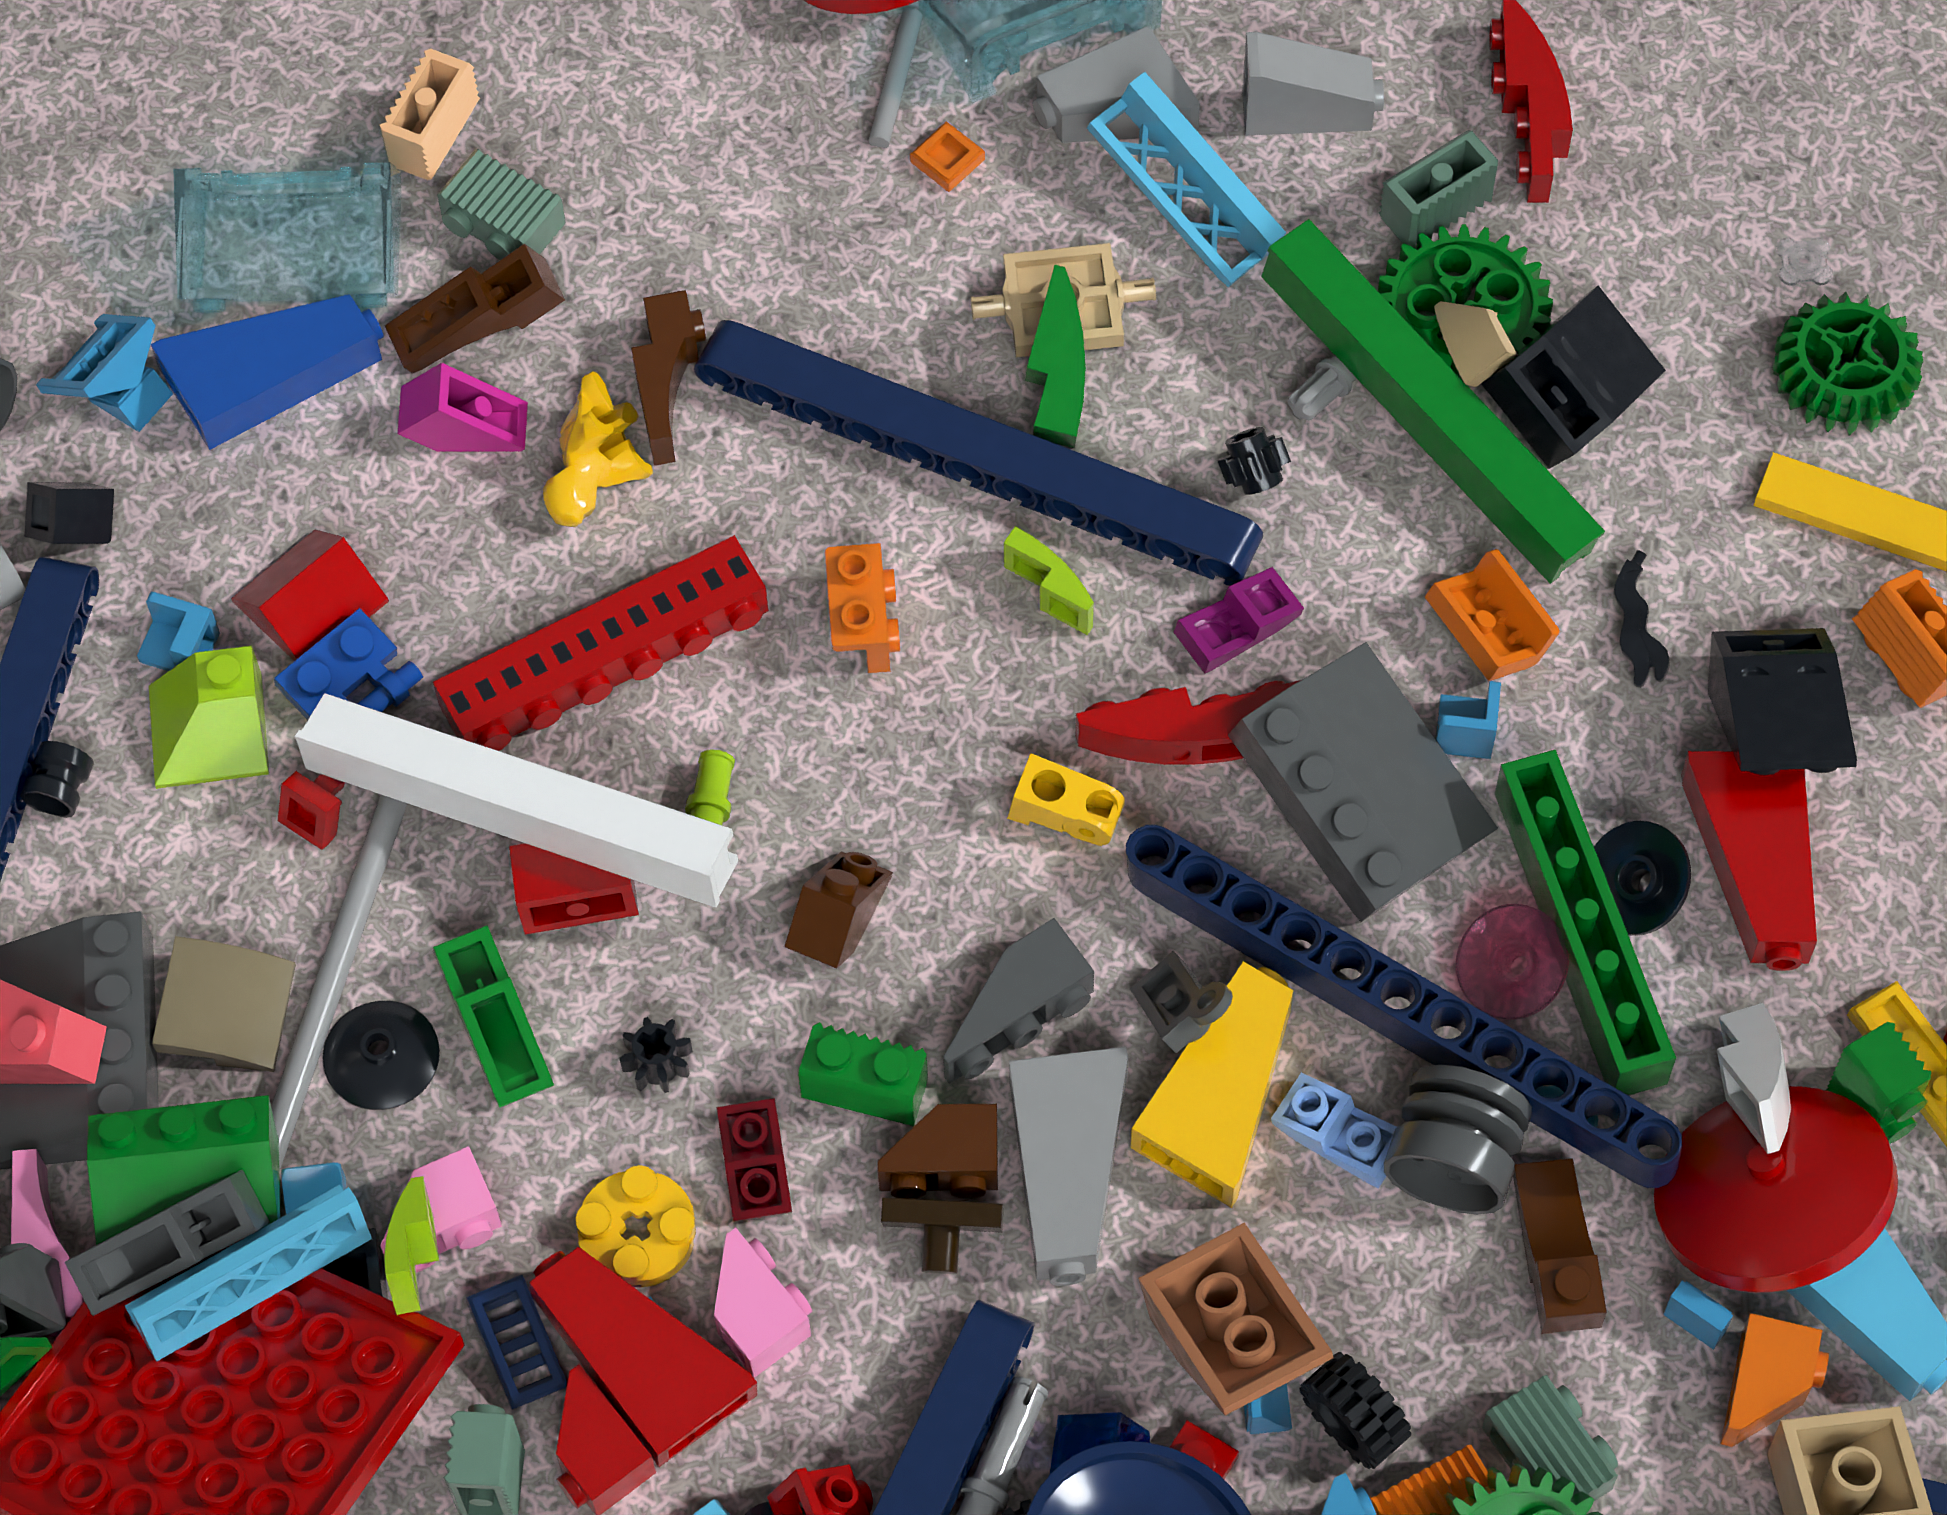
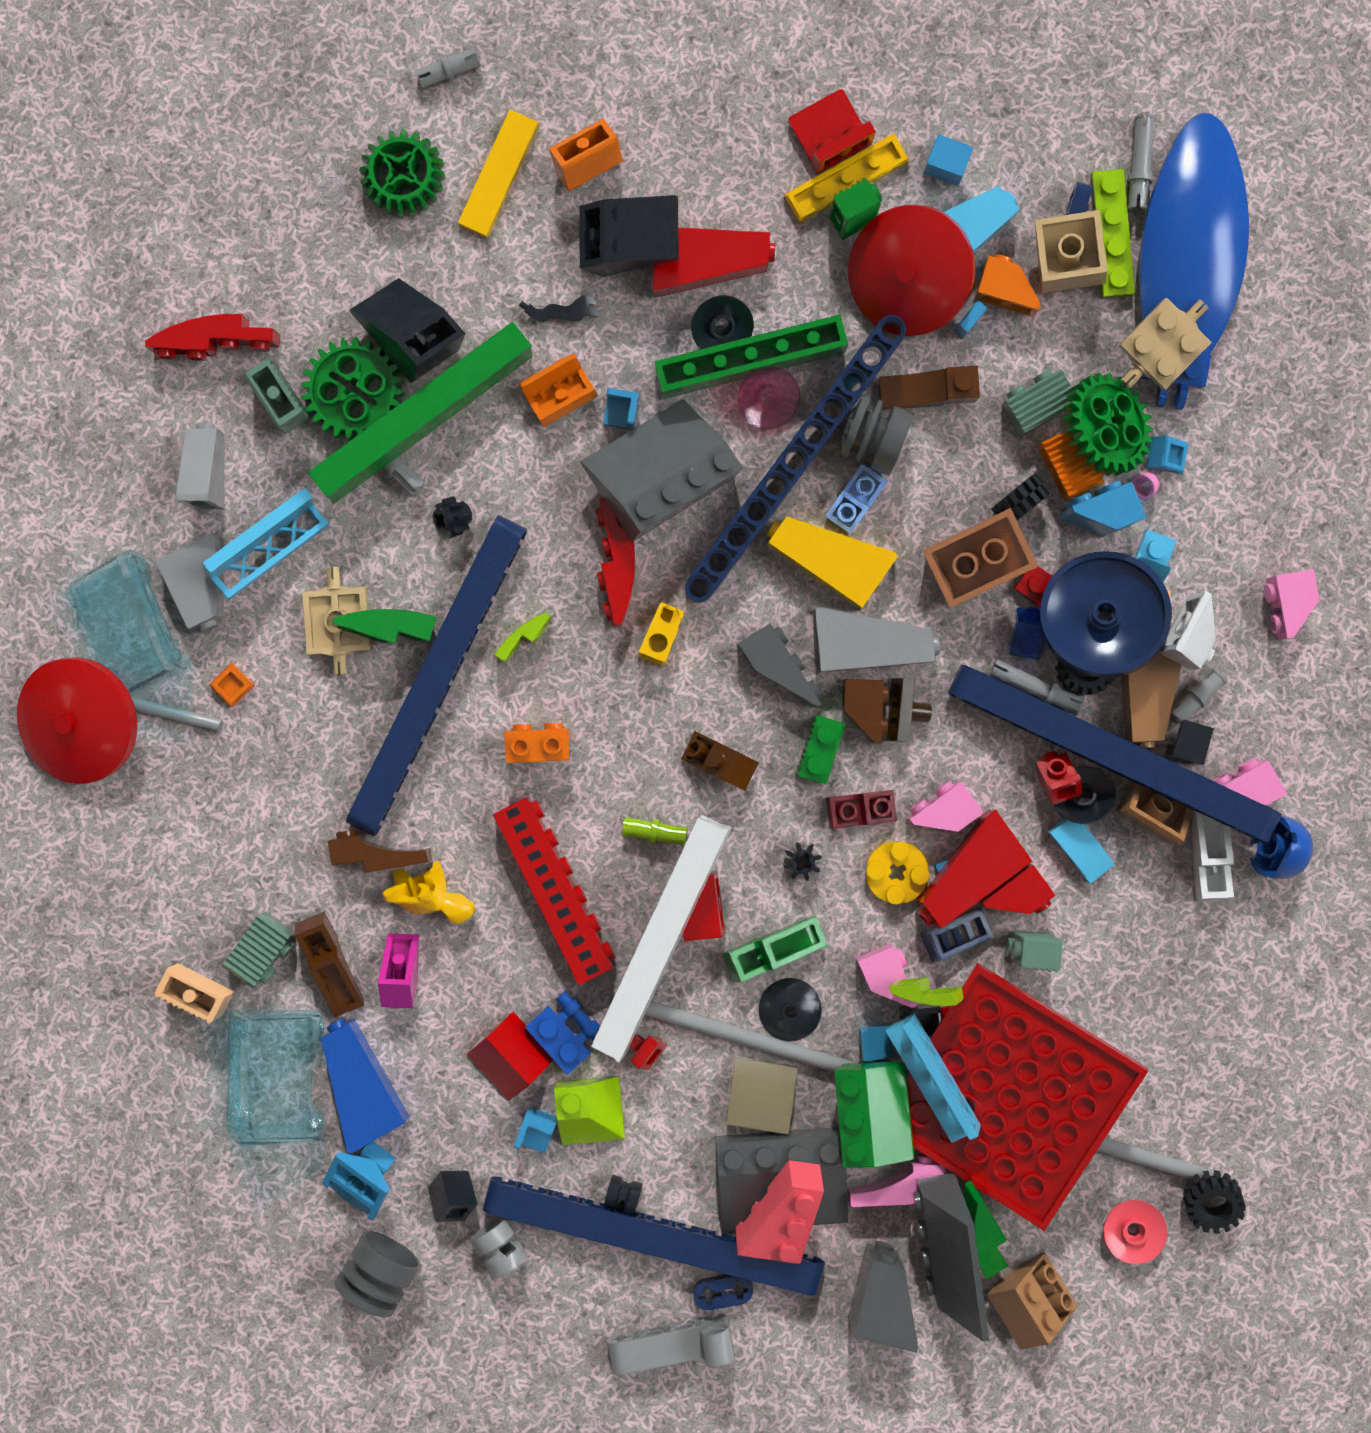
camera: 85 degrees left, 25 degrees up
(167, 1242) = (918, 1120): dark grey slope -> none
(1178, 1003) = (791, 578): dark grey hinge -> none
(1239, 621) = (549, 532): magenta slope -> none
(1474, 340) = (389, 383): tan slope -> none
(1755, 1074) = (848, 273): white slope -> none

